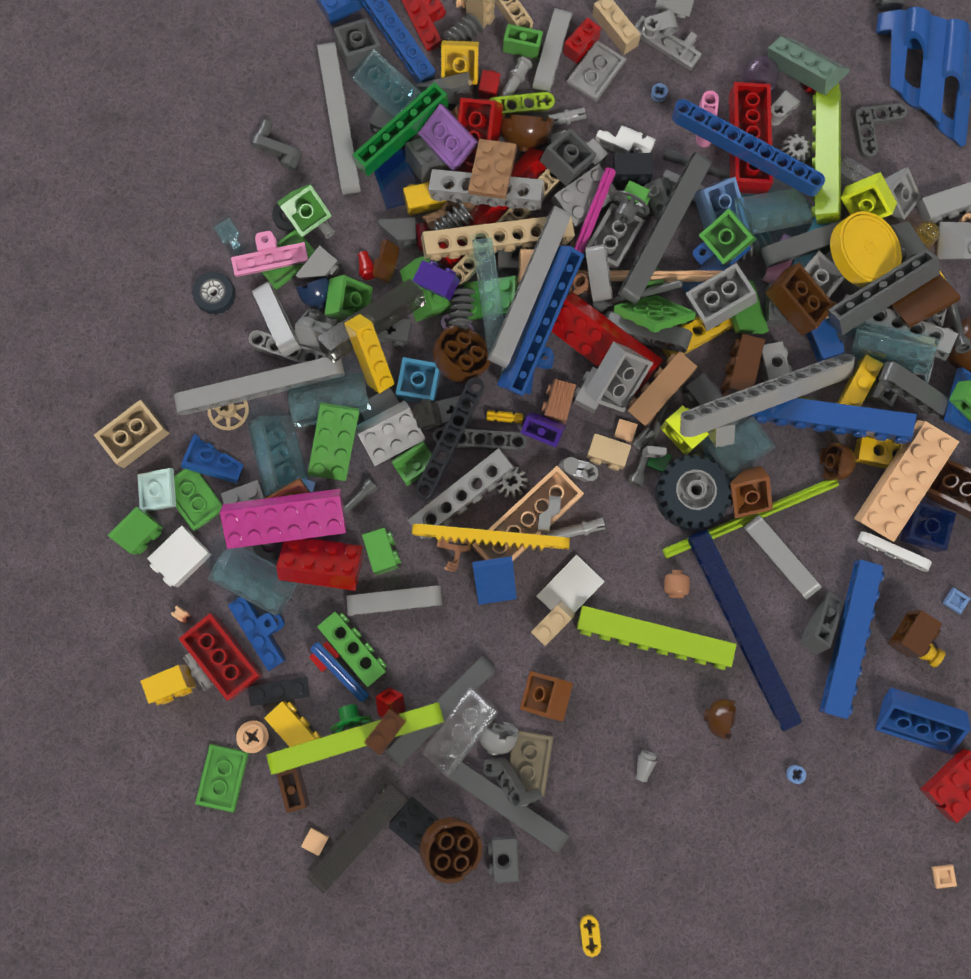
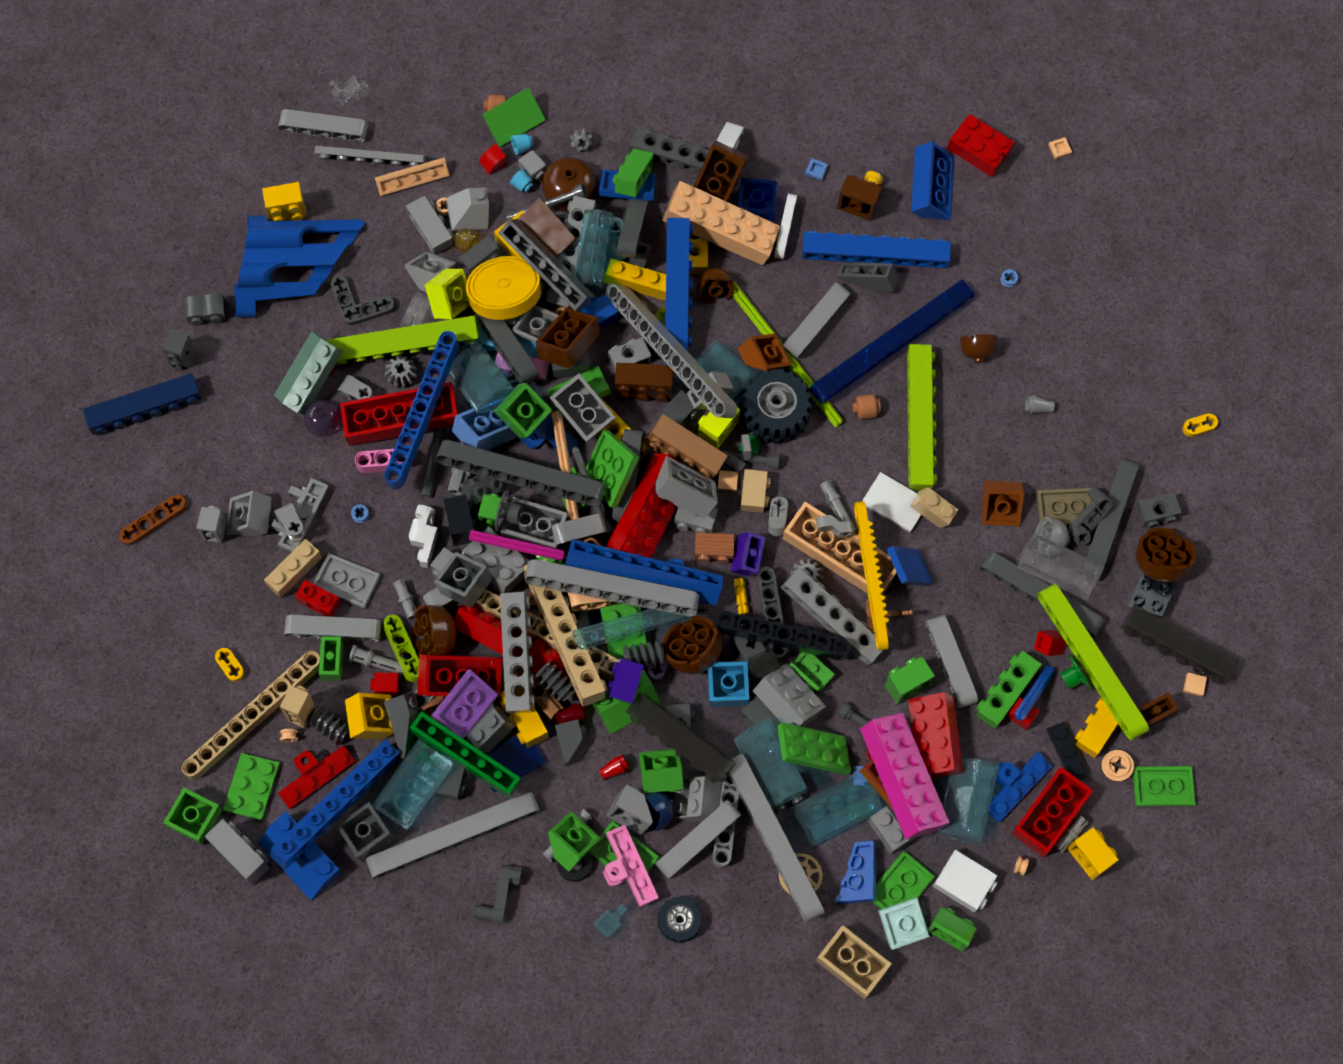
camera: 105 degrees left, 10 degrees down
(369, 353) = (718, 727): yellow brick -> none
(385, 731) = (1080, 627): reddish brown brick -> none
(386, 262) = (611, 746): reddish brown slope -> none
(492, 169) = (497, 646): medium nougat plate -> none

